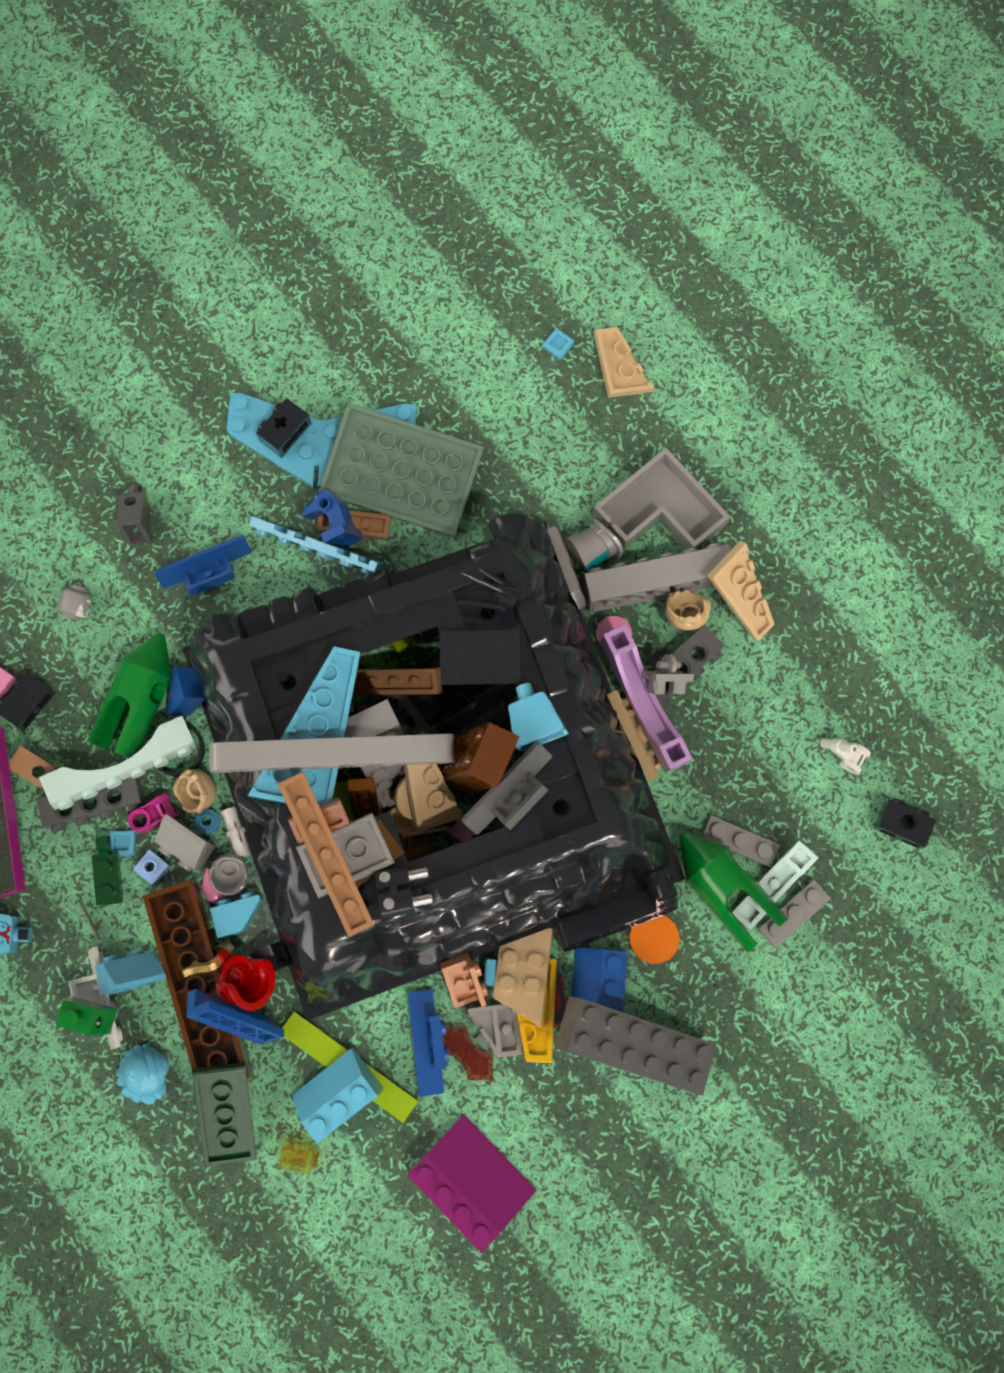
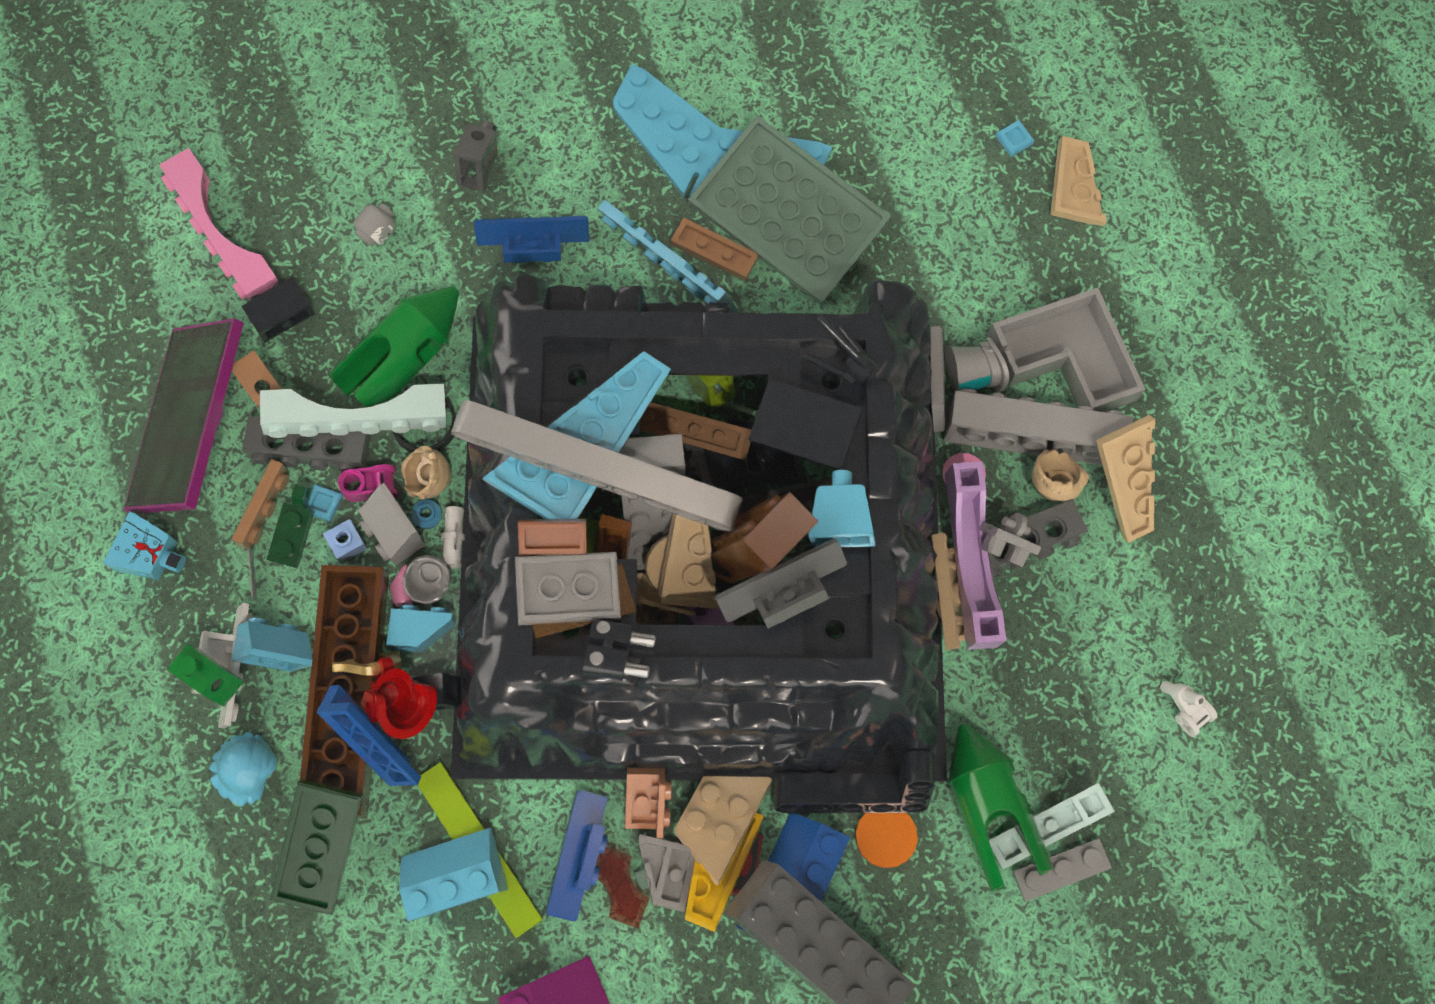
camera: 15 degrees right, 5 degrees down
(75, 864) = (261, 505): none -> medium nougat plate
(184, 692) = (456, 362): blue slope -> none
(282, 439) = (676, 118): black brick -> none
(299, 1156) = (382, 930): clear yellow brick -> none
(325, 854) = (546, 575): medium nougat plate -> none
(342, 528) = (699, 245): blue tile -> none
(489, 974) = (681, 802): medium azure tile -> none
(741, 841) = (1030, 763): light grey plate -> none
(920, 823) = (1212, 808): black brick -> none

